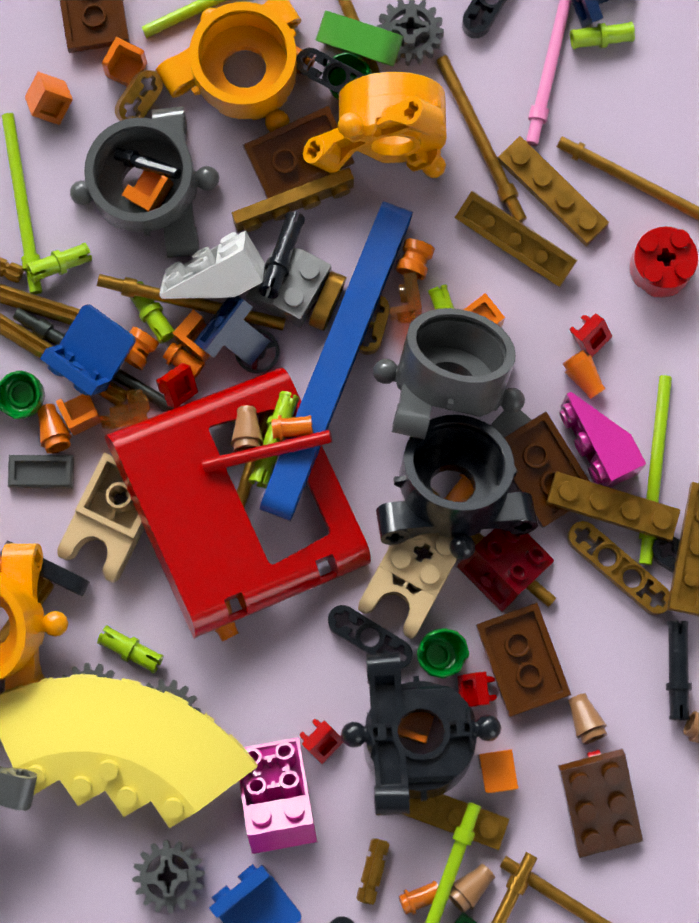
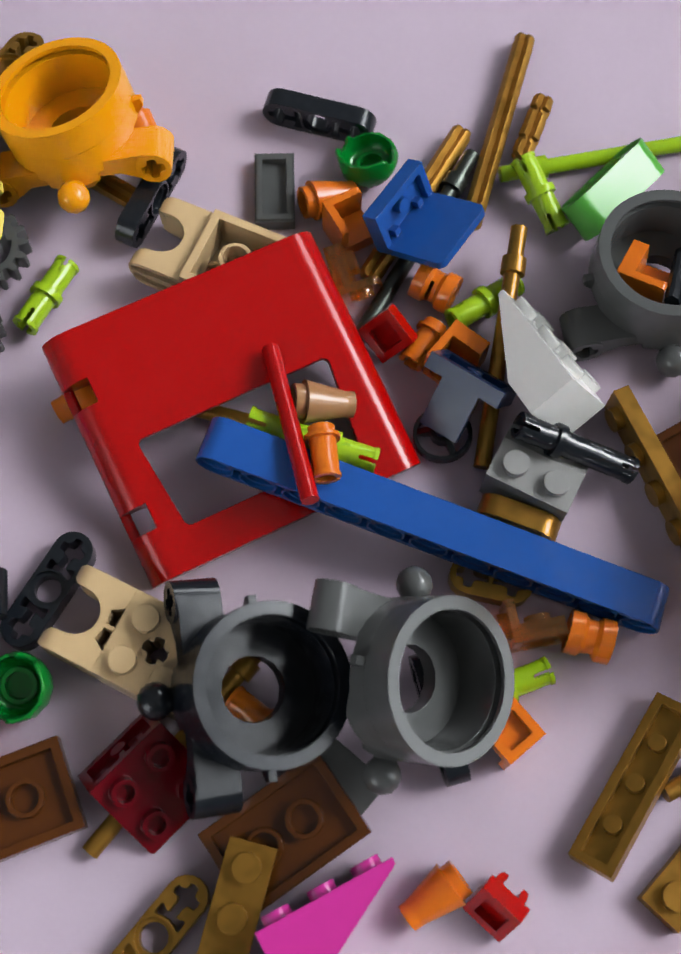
camera: 85 degrees right, 10 degrees down
(59, 206) = (622, 177): none -> beam

